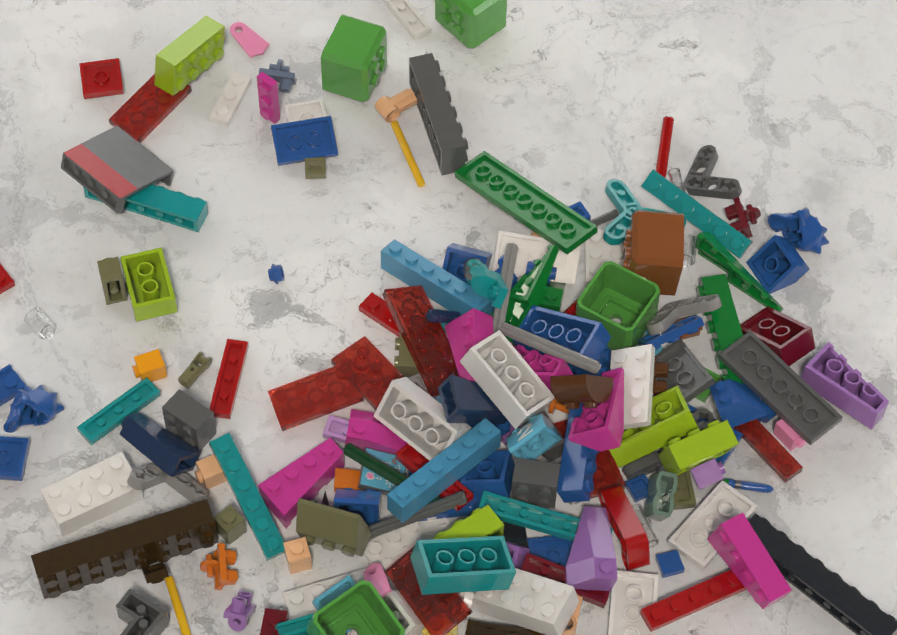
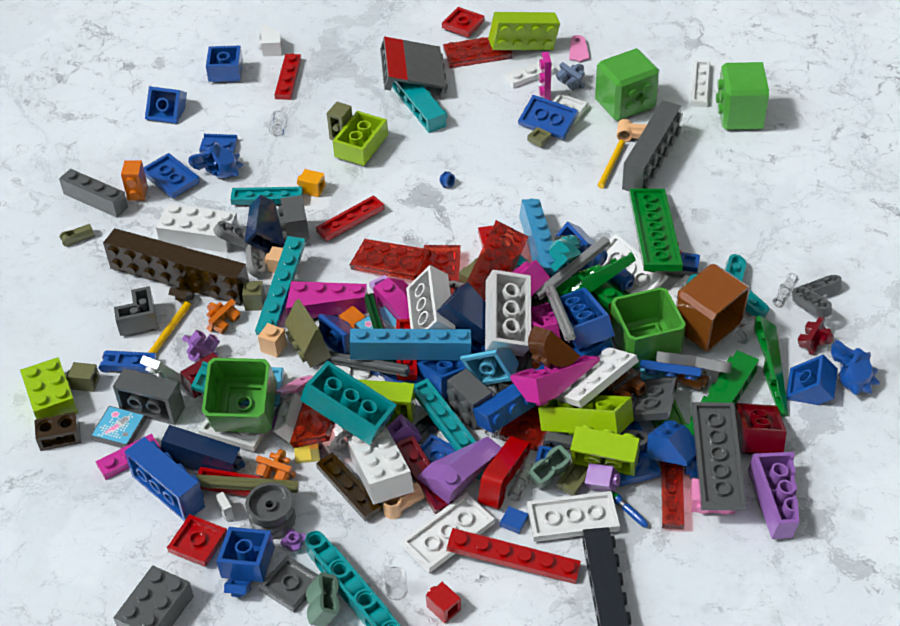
camera: 45 degrees right, 10 degrees down
(193, 371) = (337, 201): olive bar -> none
(441, 316) = (516, 257): dark blue axle -> none
(664, 147) = (802, 261): red axle -> none
(696, 213) = (781, 312): teal plate -> none
(749, 560) = (563, 552): dark pink wedge -> none

